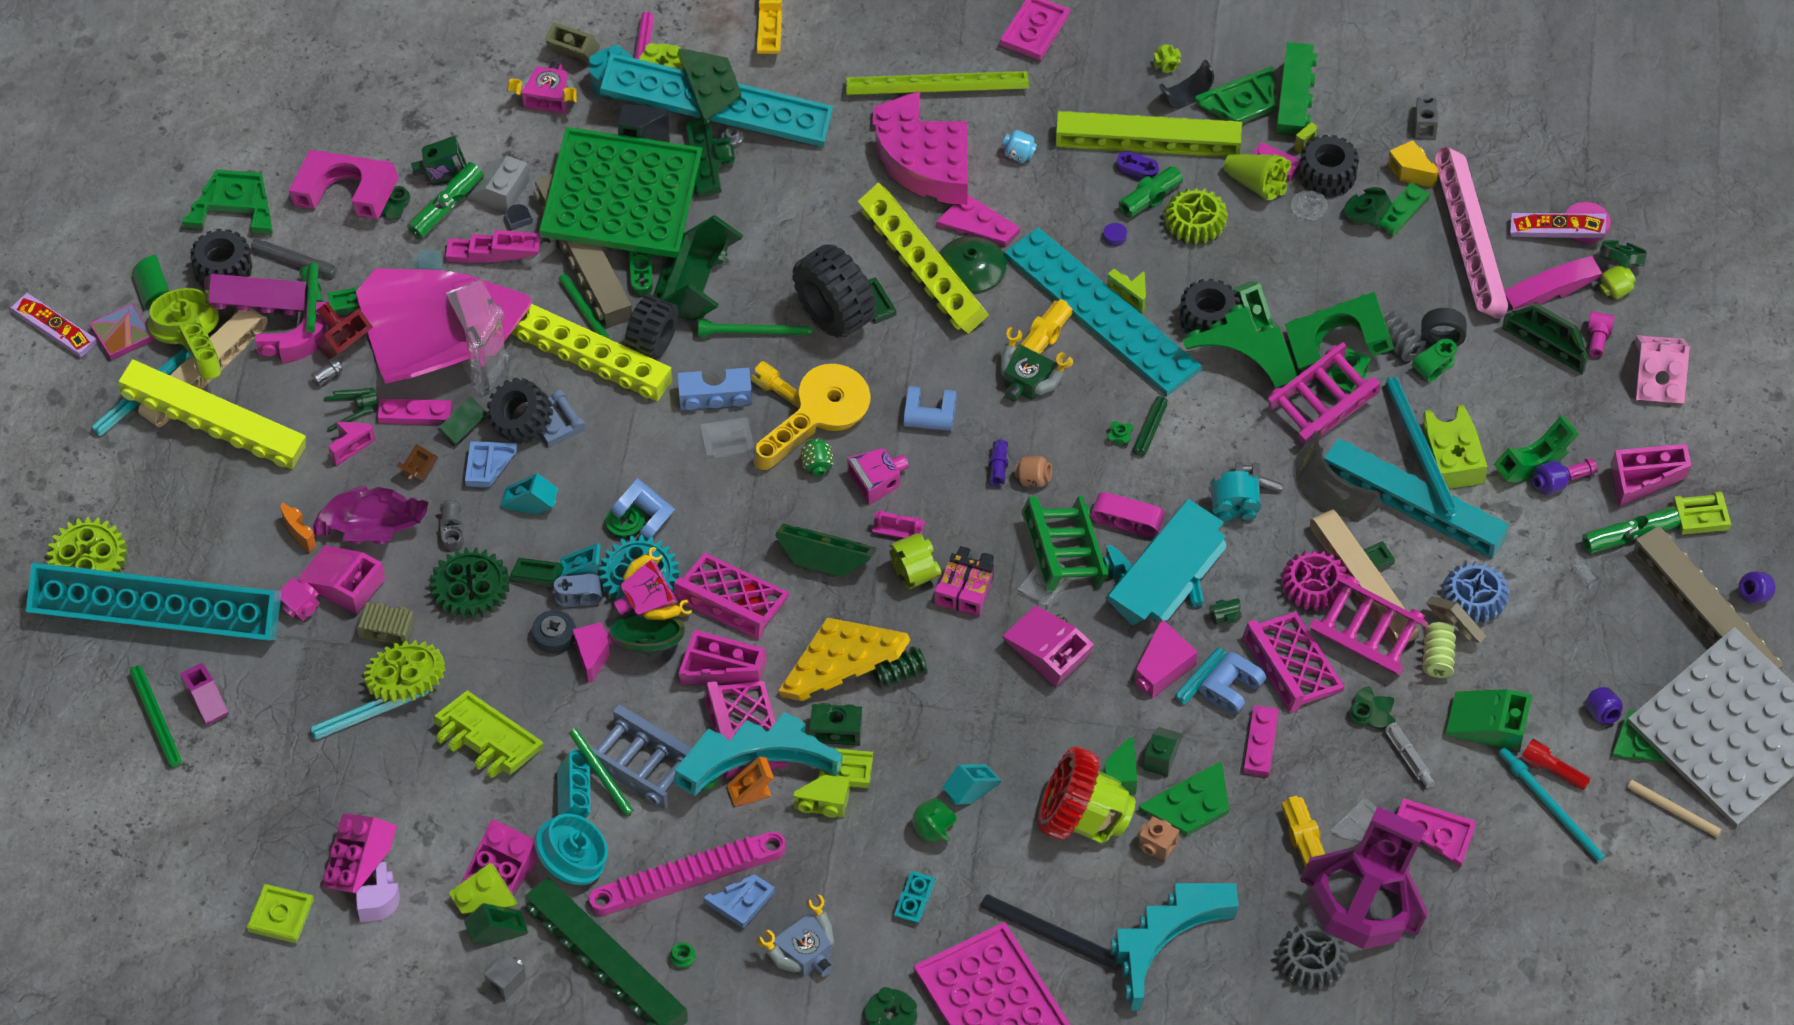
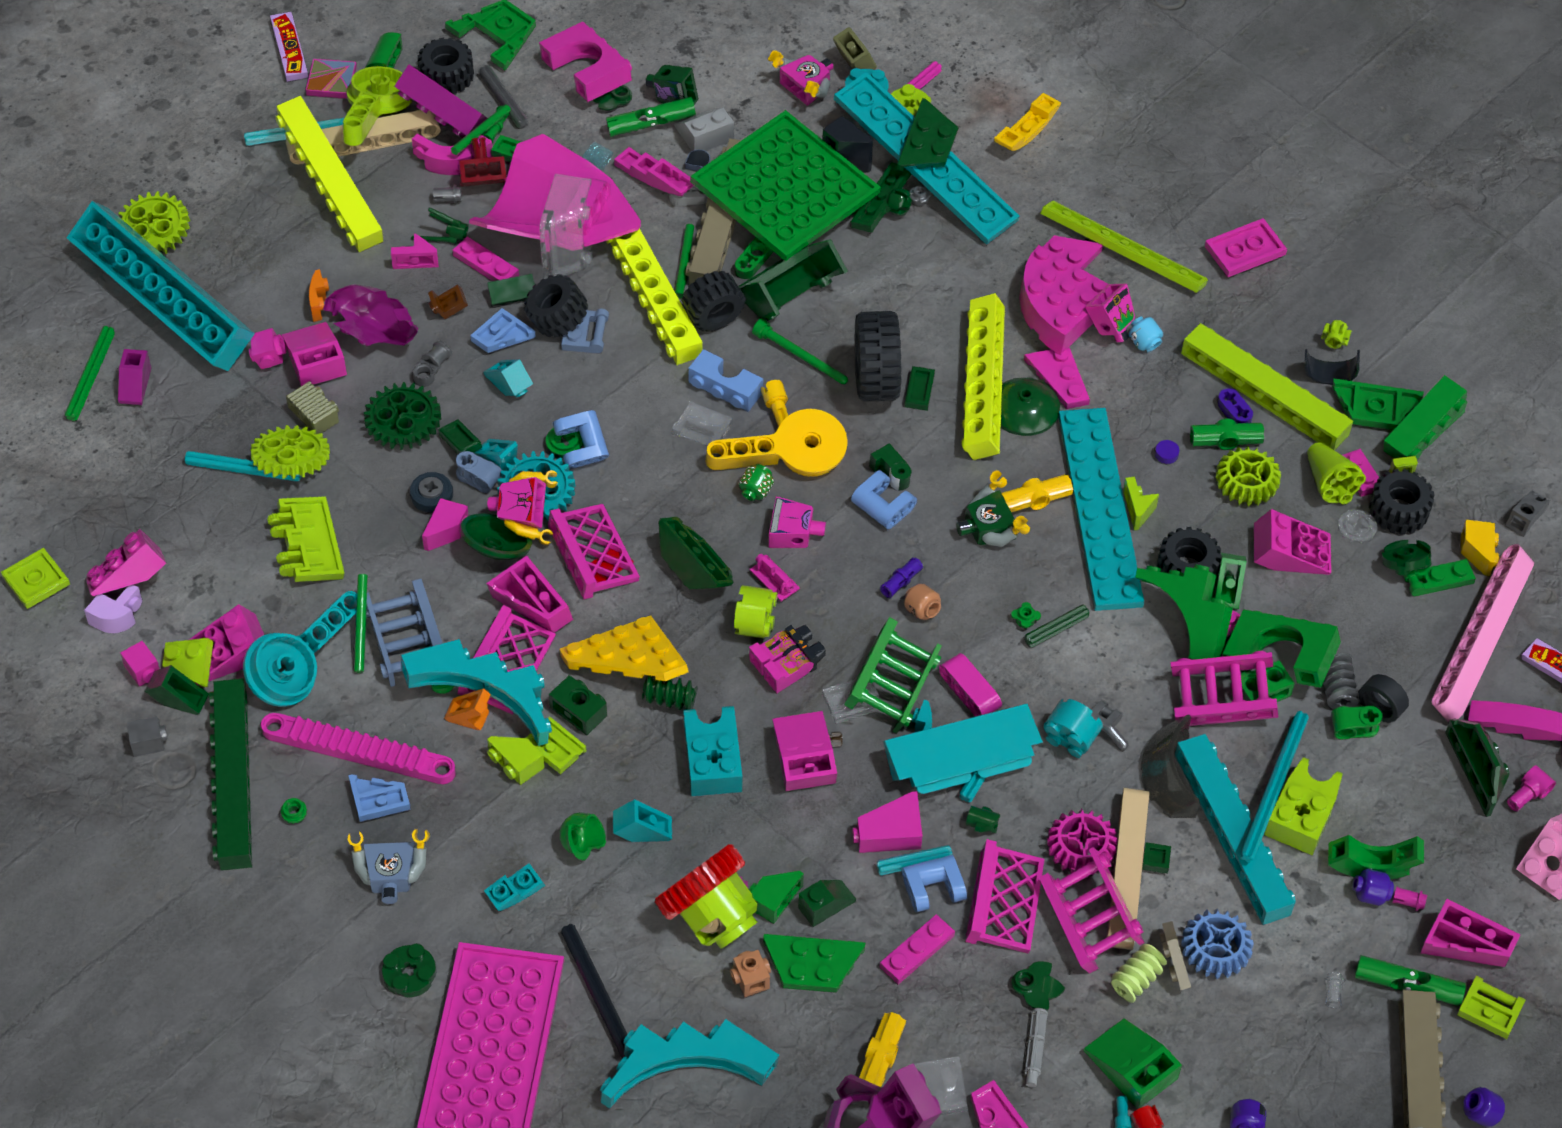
camera: 35 degrees right, 0 degrees up
(443, 923) = (140, 663): none -> dark pink brick
(912, 374) = (893, 465): none -> dark green leg
(977, 692) = (713, 754): none -> teal brick
(983, 141) = (1112, 311): none -> dark pink torso
(1273, 251) = (1291, 545): none -> dark pink slope

